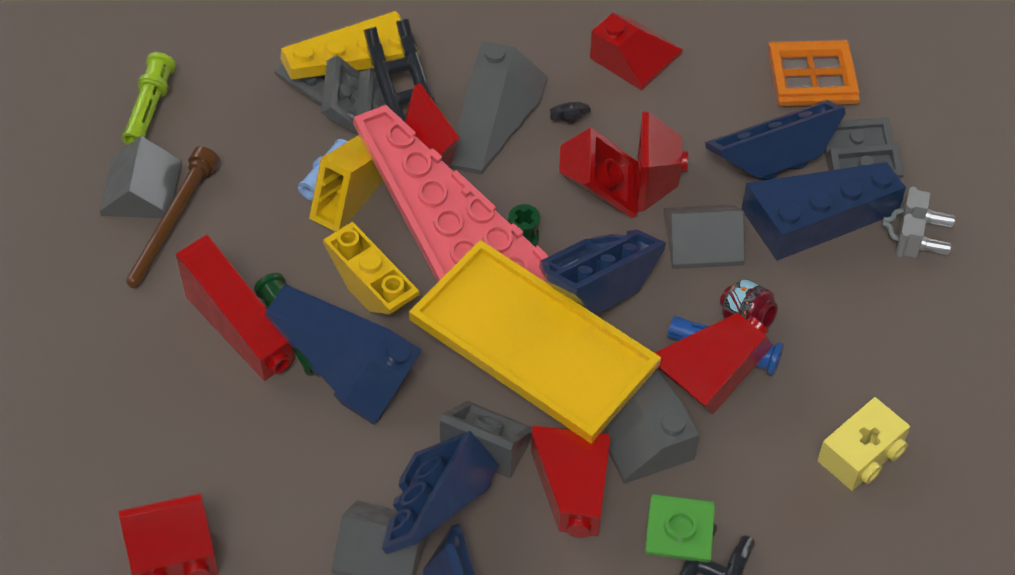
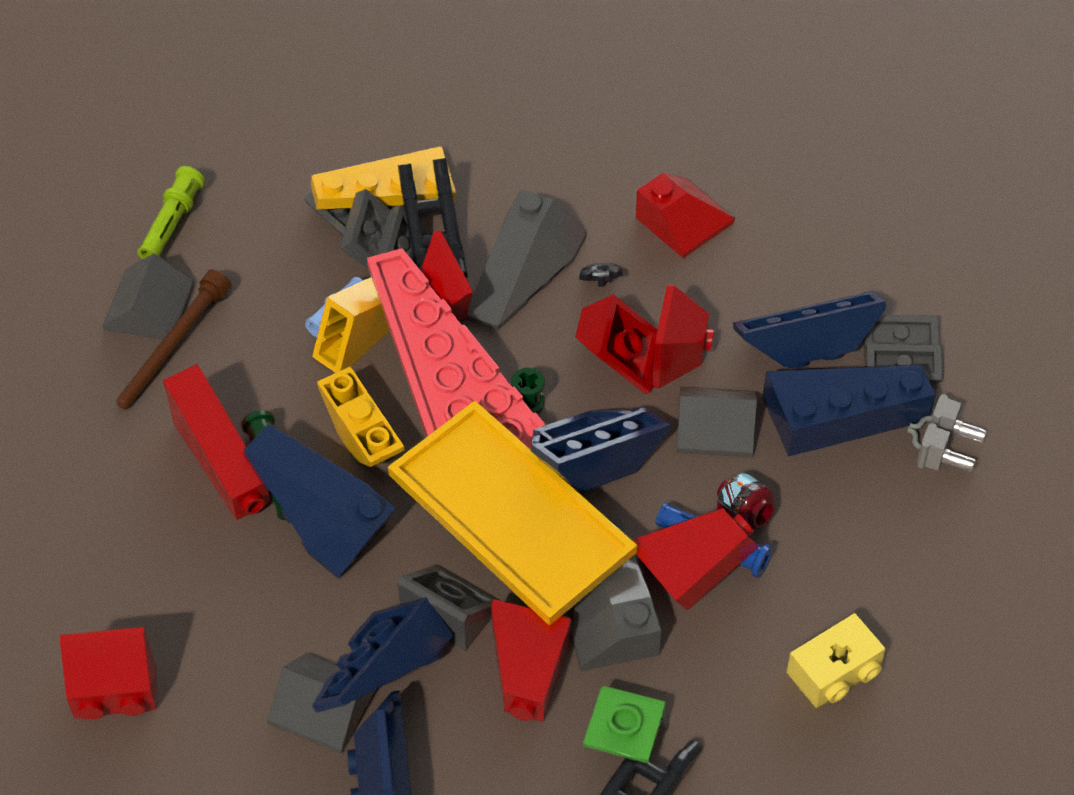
camera: 10 degrees right, 0 degrees up
(813, 72) = (869, 258): orange piece -> none

